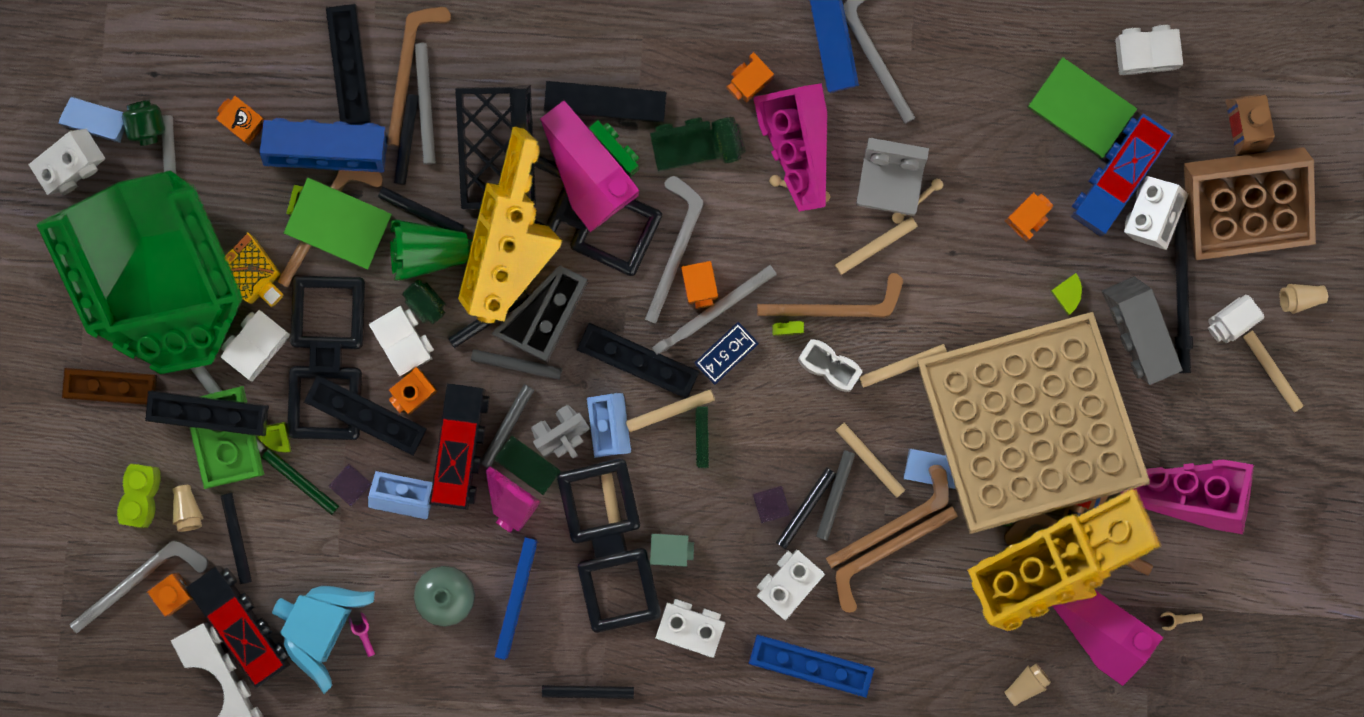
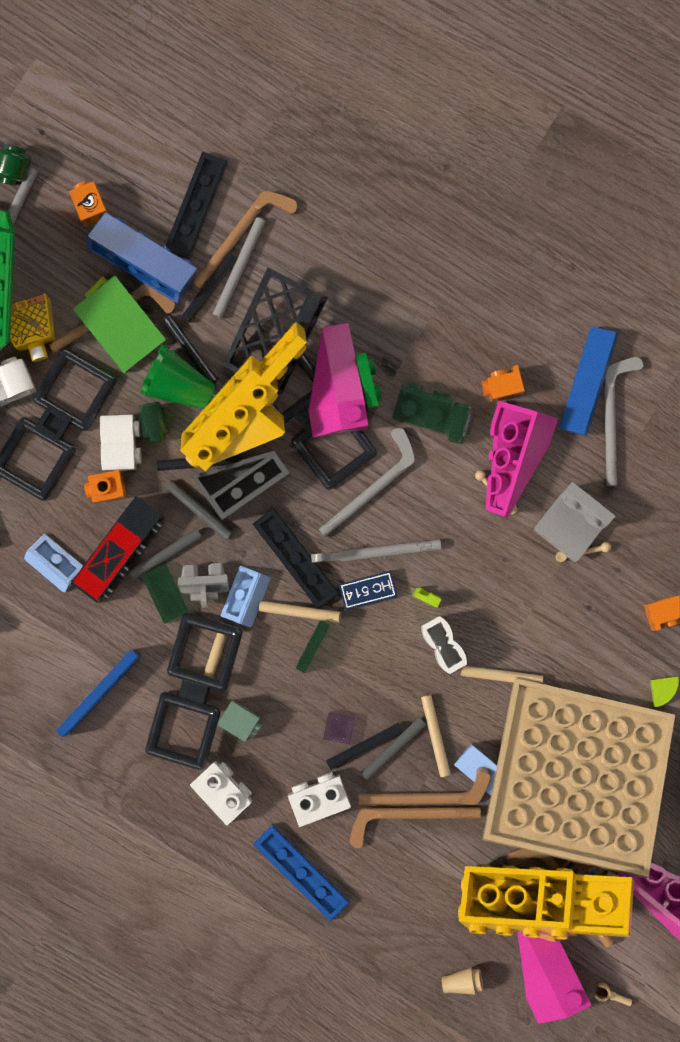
camera: 30 degrees right, 0 degrees up
(350, 485) = (18, 533): clear purple tile -> none
(365, 415) = (59, 485): black tile -> none
(444, 596) = (44, 660): sand green cylinder -> none
(509, 501) = (135, 614): dark pink wedge -> none
(605, 692) = (115, 797): black bar -> none
(607, 101) = (382, 342): black tile -> none
(700, 284) = (376, 525): orange brick -> none
(876, 245) = (531, 569): tan bar -> none
(880, 310) = (509, 623): medium nougat piece -> none

